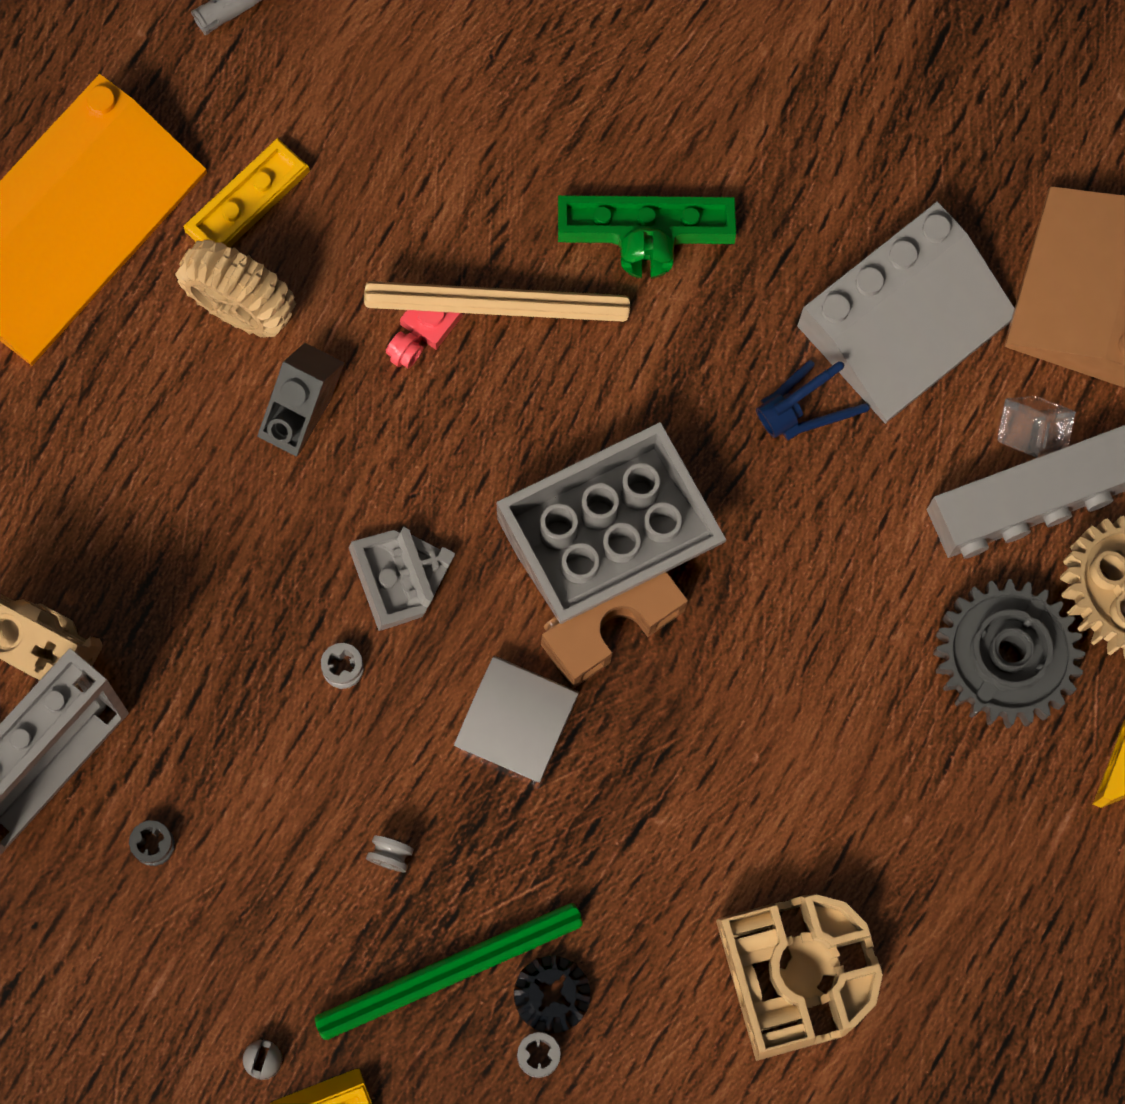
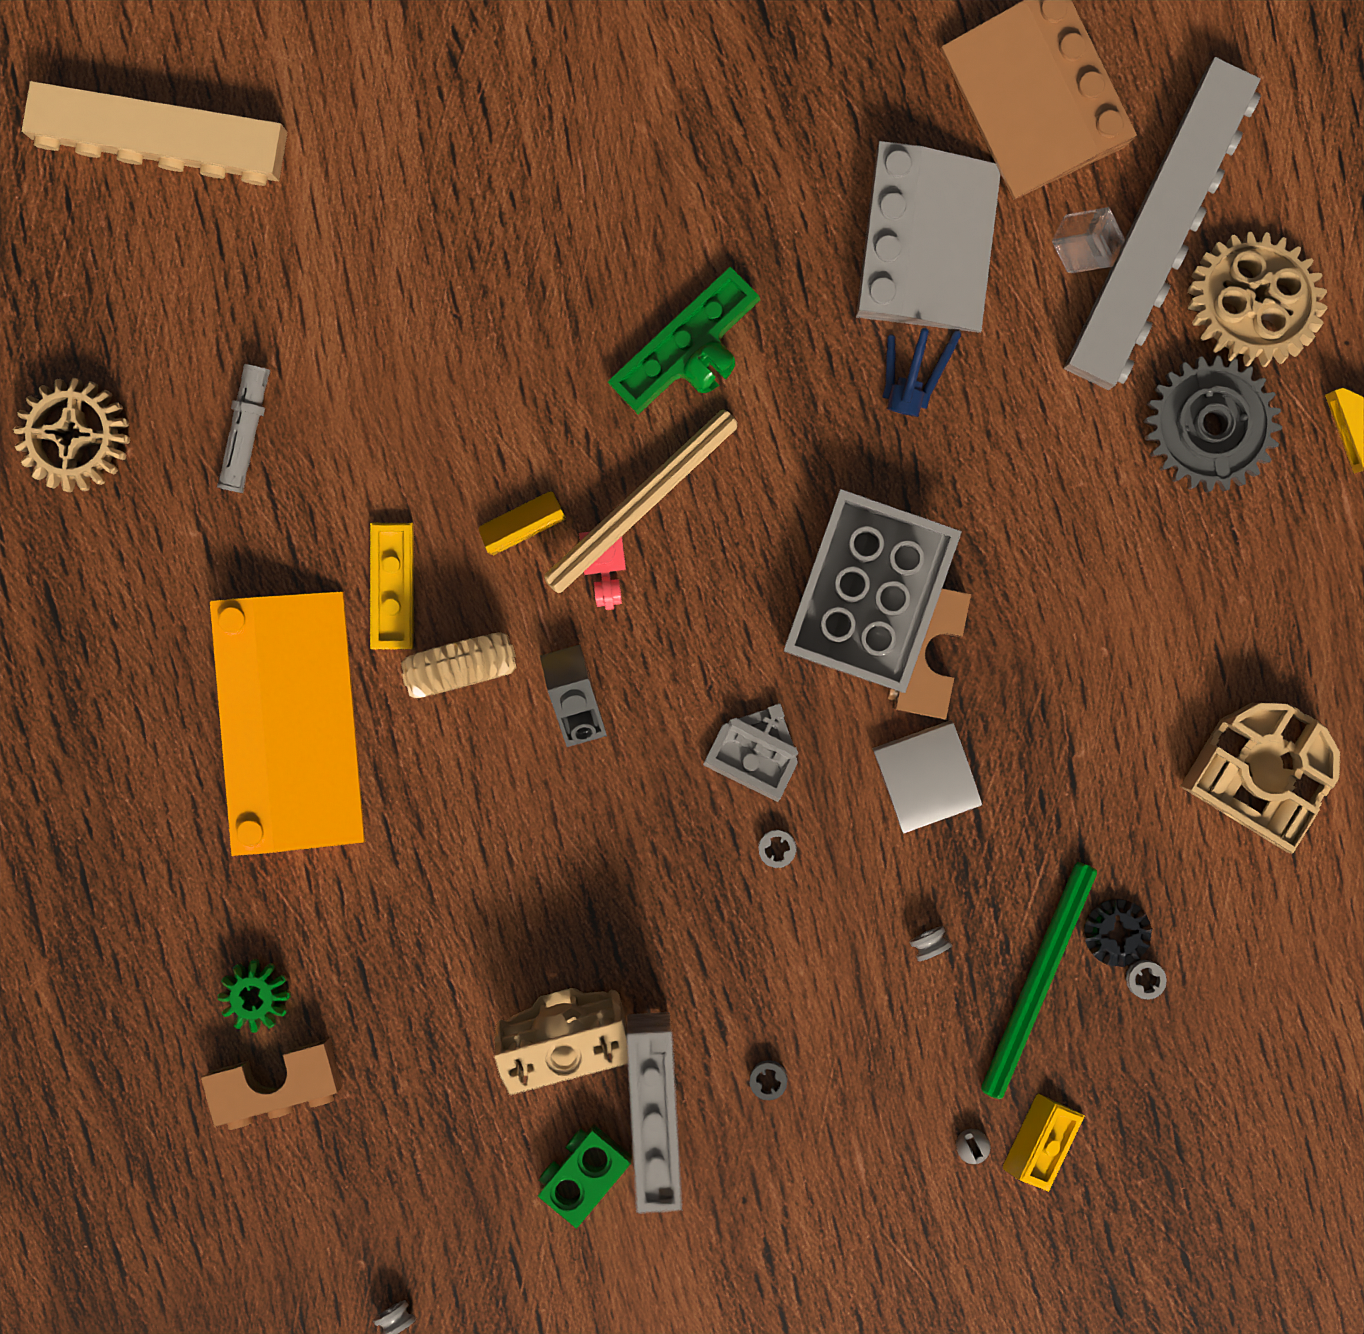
camera: 40 degrees left, 15 degrees up
(389, 243) = (521, 523): none -> yellow slope

